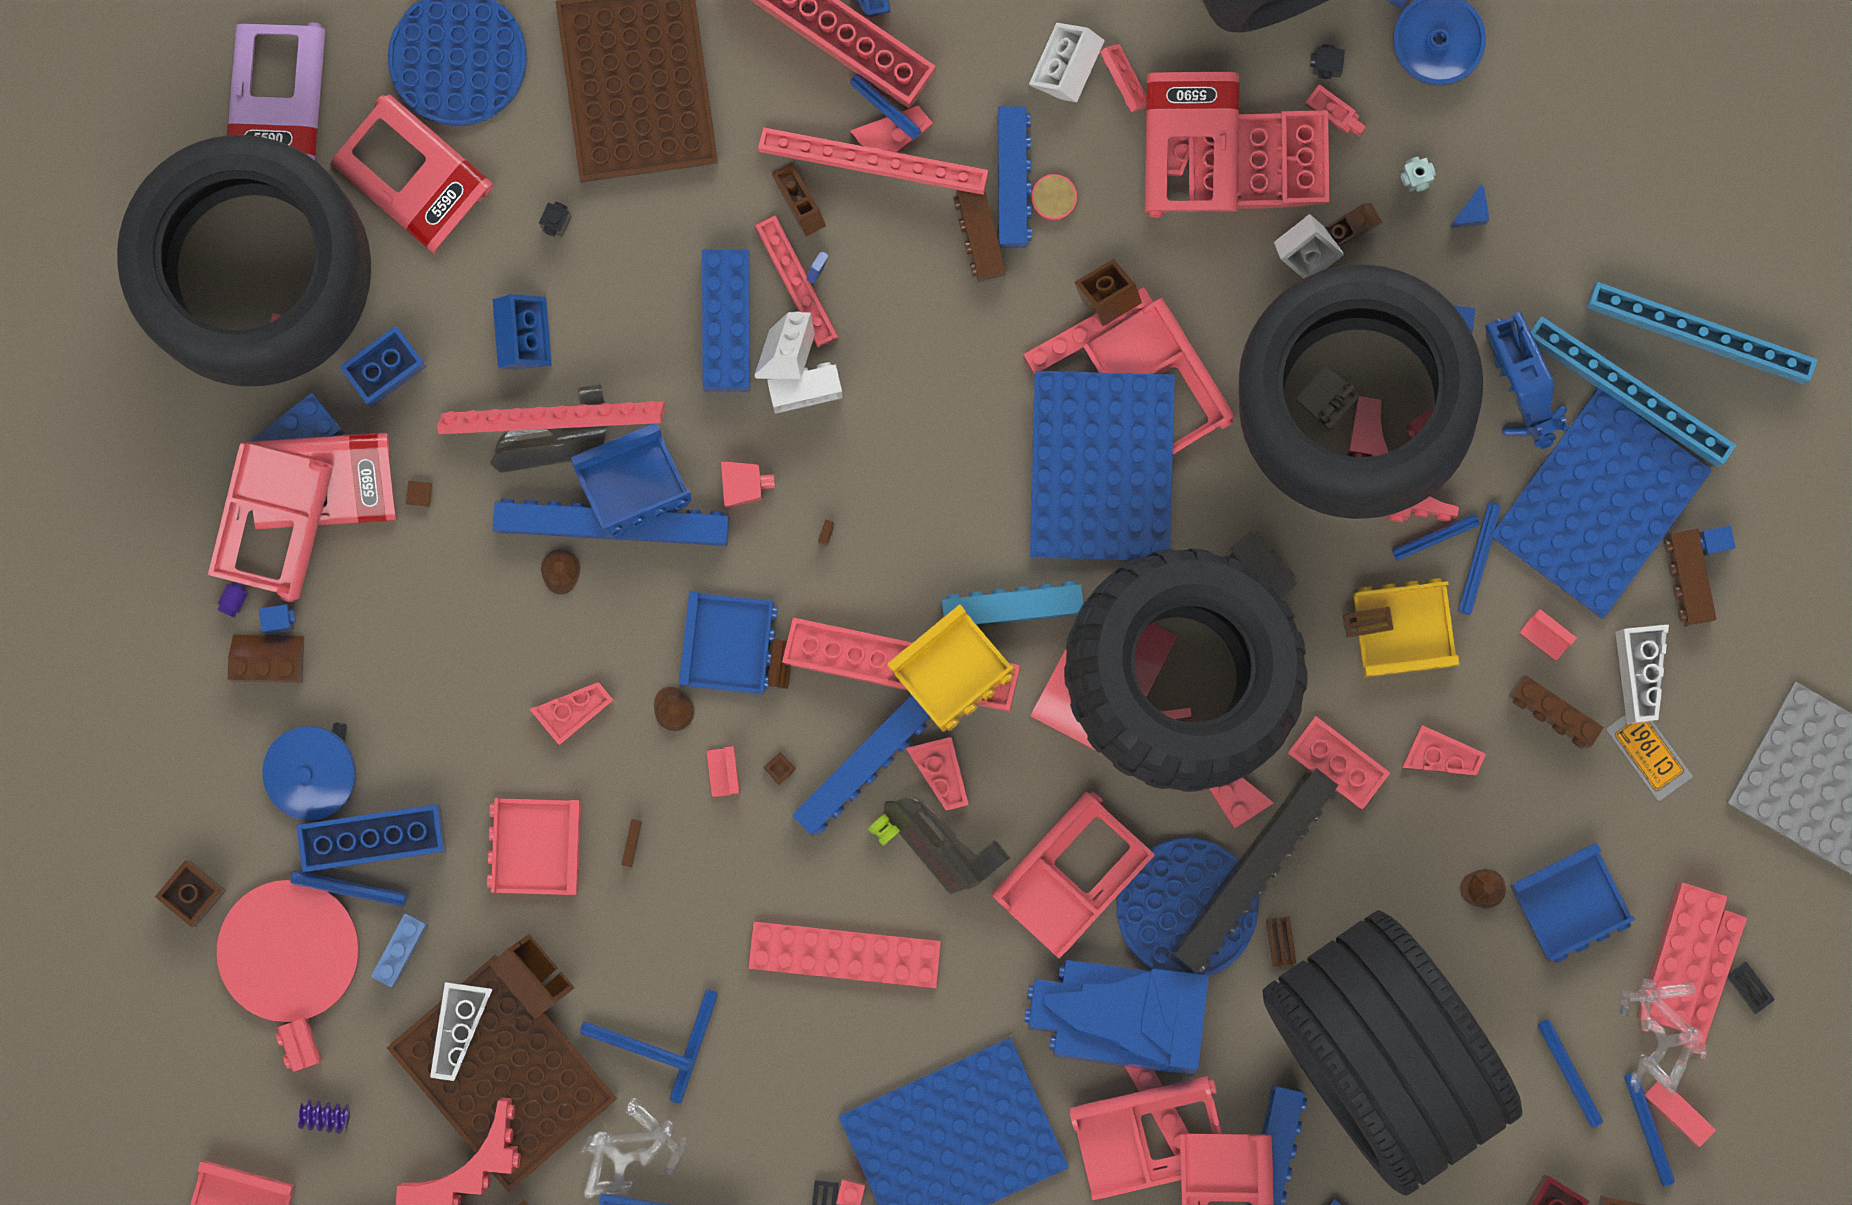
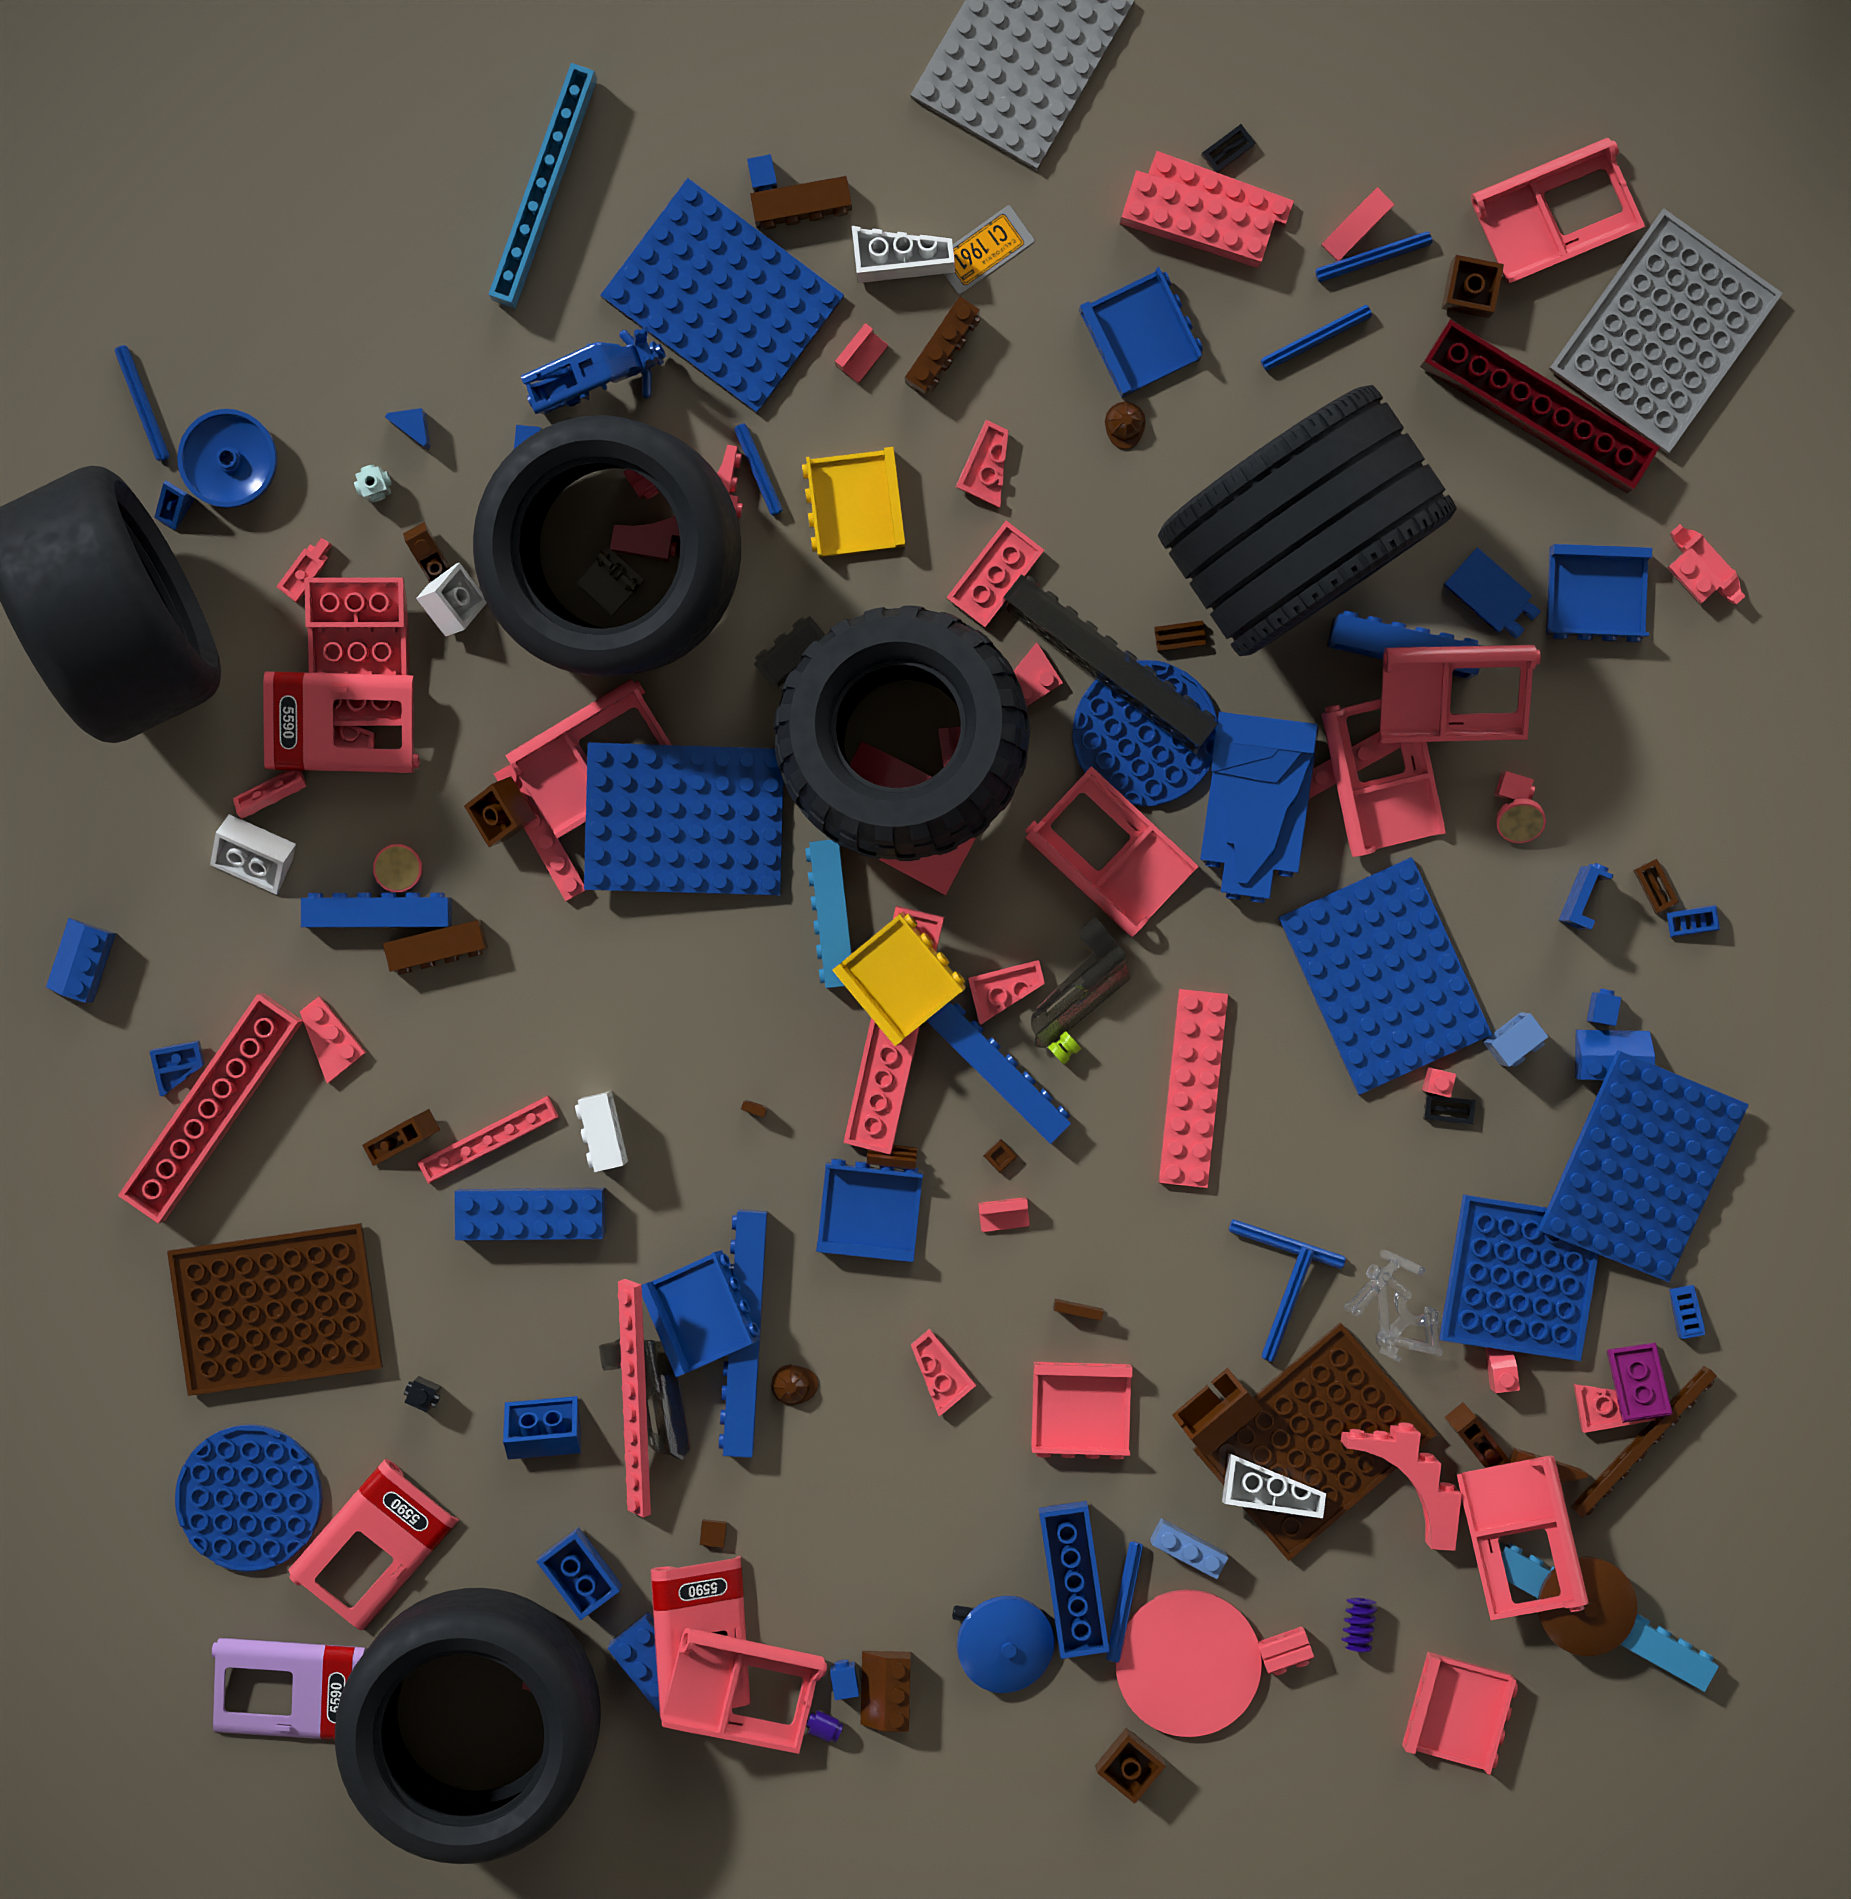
camera: 85 degrees left, 5 degrees up
(673, 709) = (938, 1266): reddish brown piece -> none
(743, 483) = (702, 1194): coral torso -> none
(787, 347) = (559, 1150): white slope -> none
(817, 267) = (473, 1118): blue tile -> none
(873, 161) = (359, 1059): coral plate -> none
(885, 106) = (301, 1046): blue axle -> none
(1327, 61) = (251, 577): black brick -> none
(1348, 625) = (851, 562): reddish brown tile -> none
(1479, 558) = (781, 424): blue axle -> none
(1631, 393) = (606, 260): dark azure brick -> none
(1689, 1038) = (1282, 211): clear piece -> none

